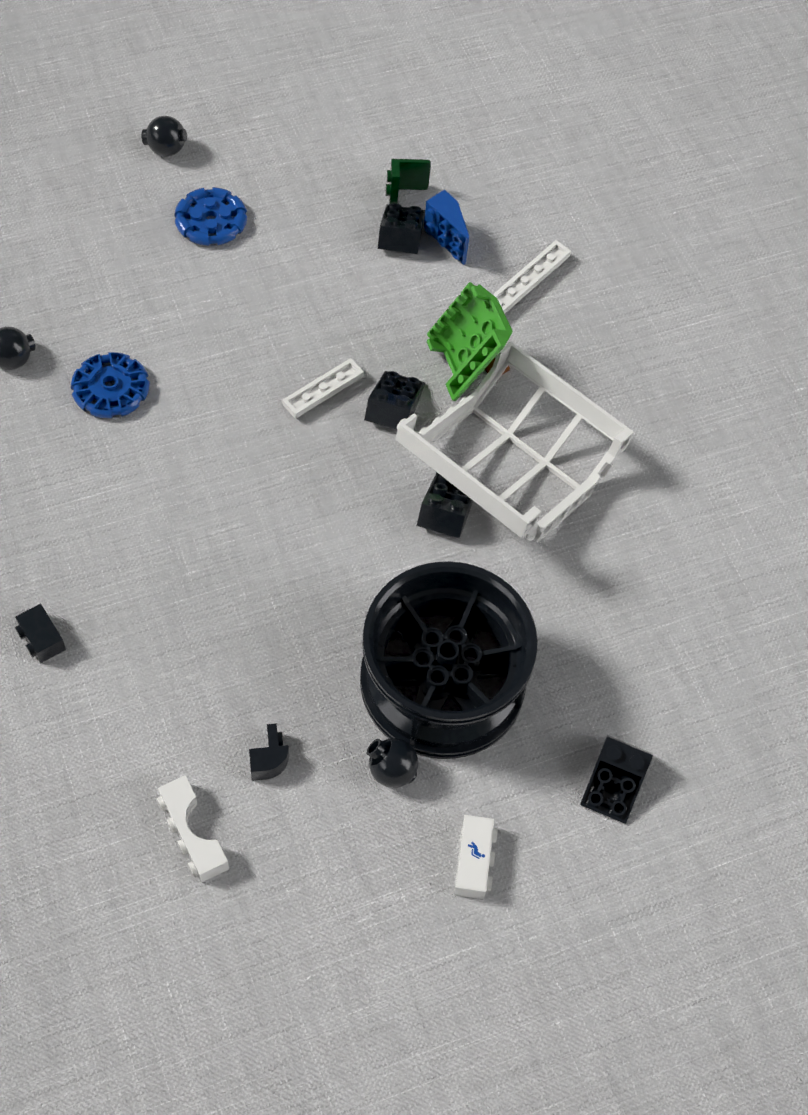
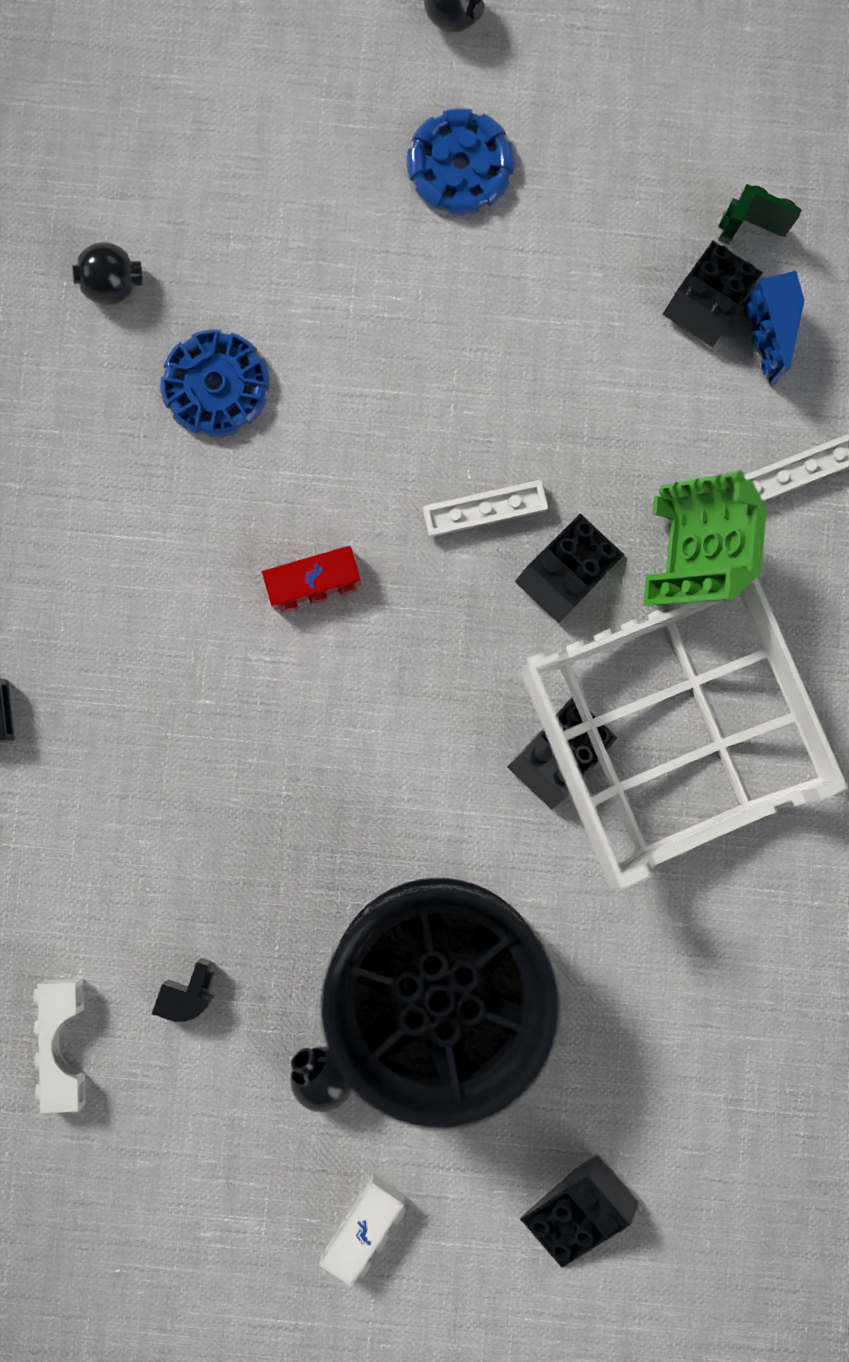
camera: 30 degrees right, 25 degrees up
(230, 467) = (312, 579): none -> red brick

